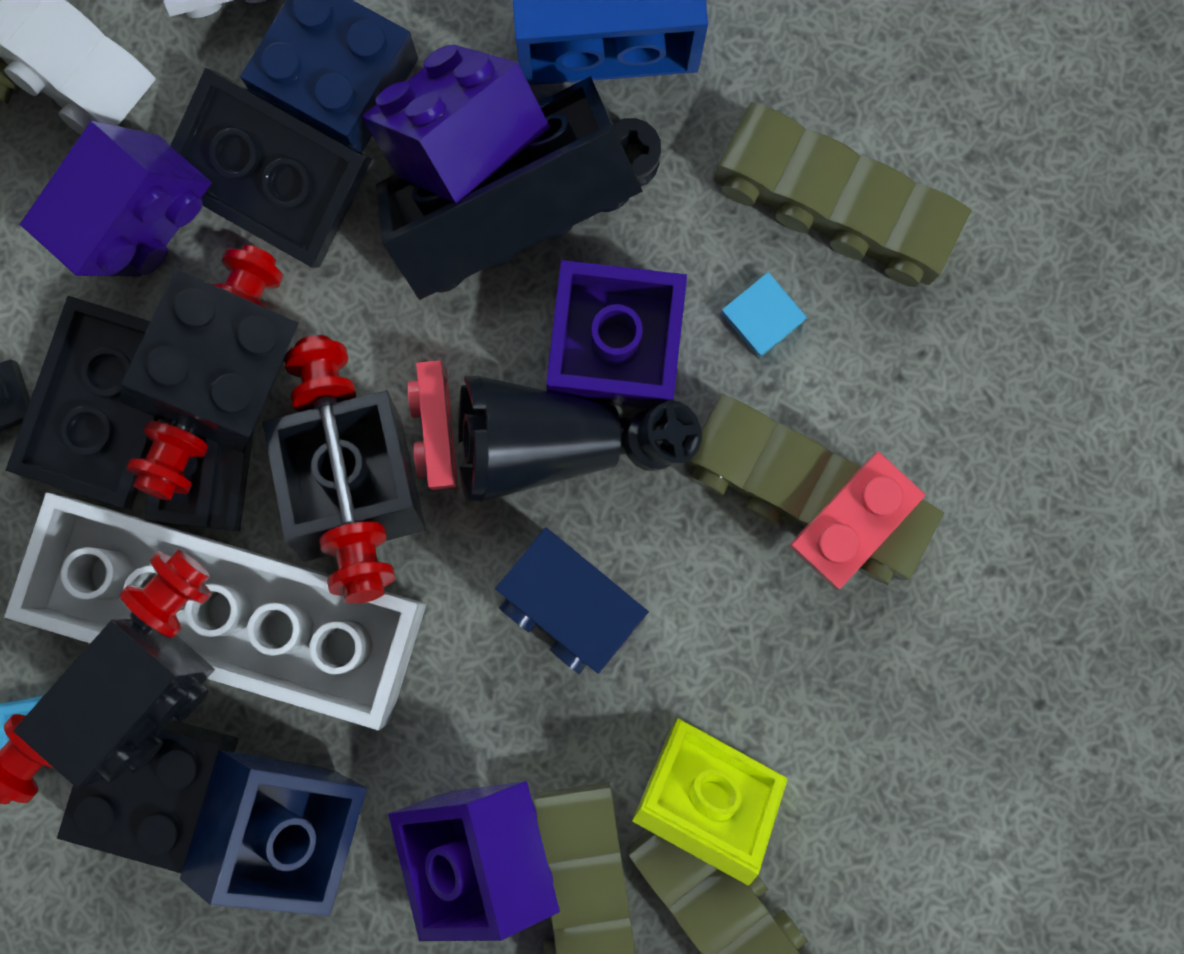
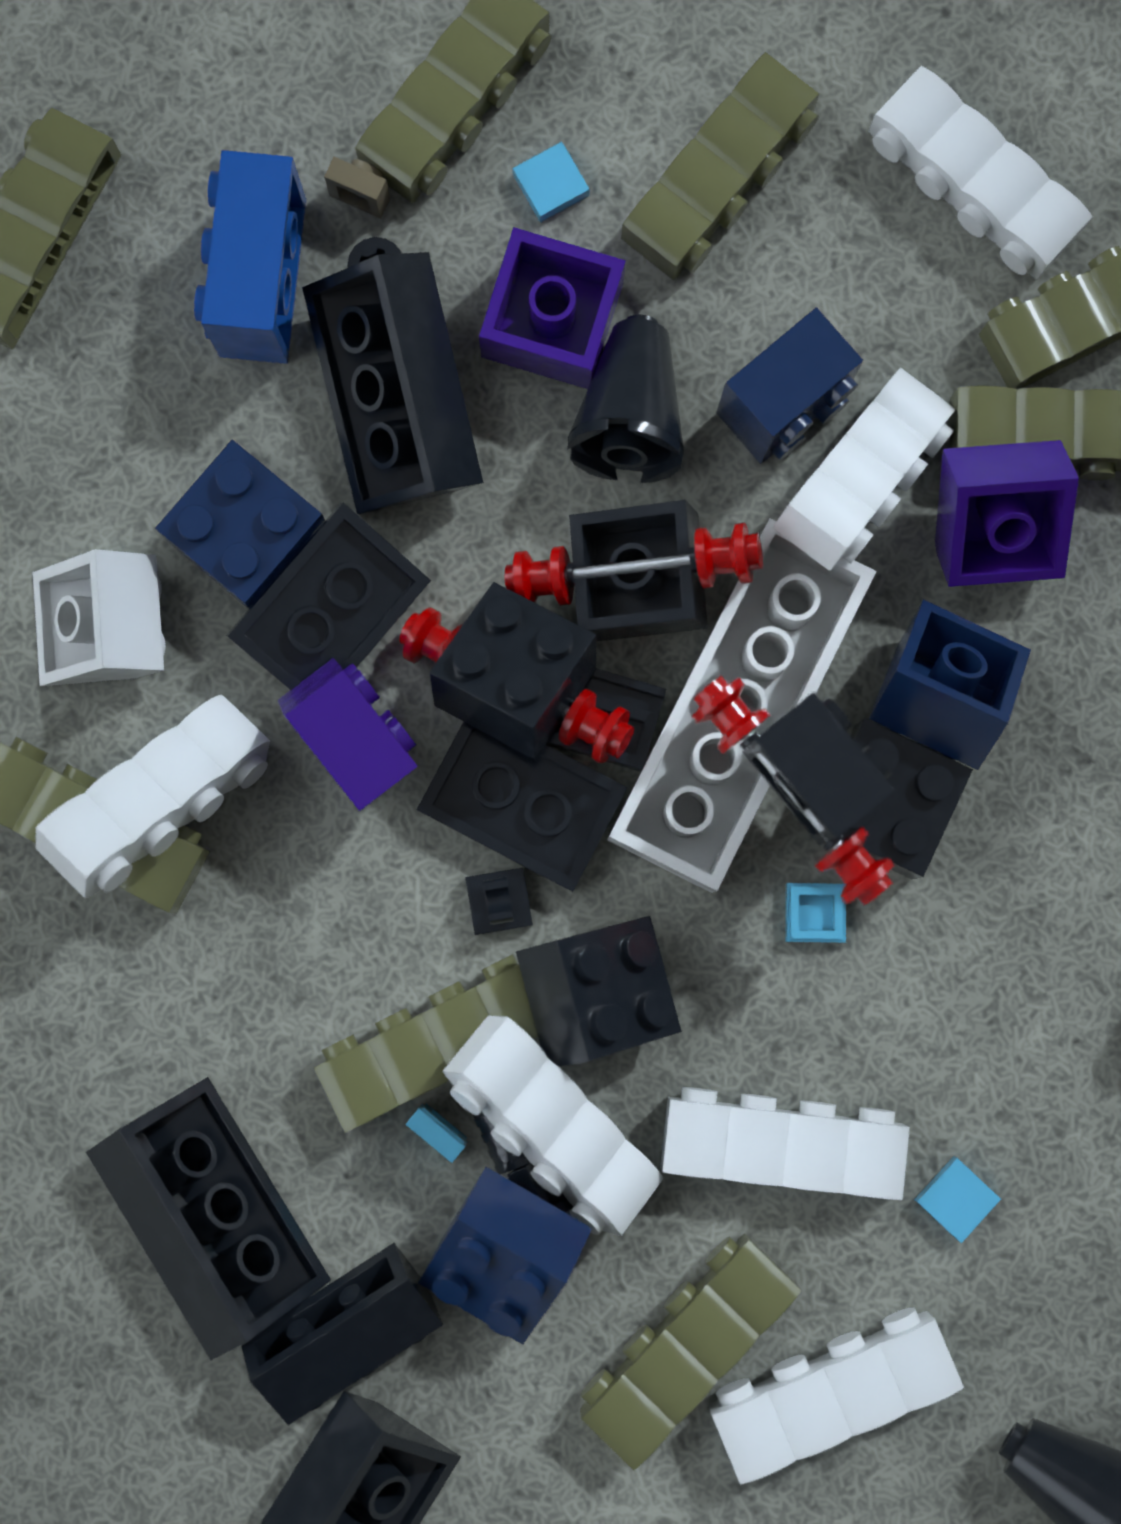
camera: 80 degrees left, 0 degrees up
(431, 401) = (579, 489): coral plate -> none
(455, 120) = (328, 410): dark purple brick -> none
(490, 700) = (864, 469): none -> white brick
(667, 422) = (653, 283): black wheel -> none
(712, 801) = (984, 301): neon yellow tile -> none
(717, 116) = (358, 185): none -> dark tan plate
(857, 520) = (761, 124): coral plate -> none
(861, 770) = (979, 173): none -> white brick

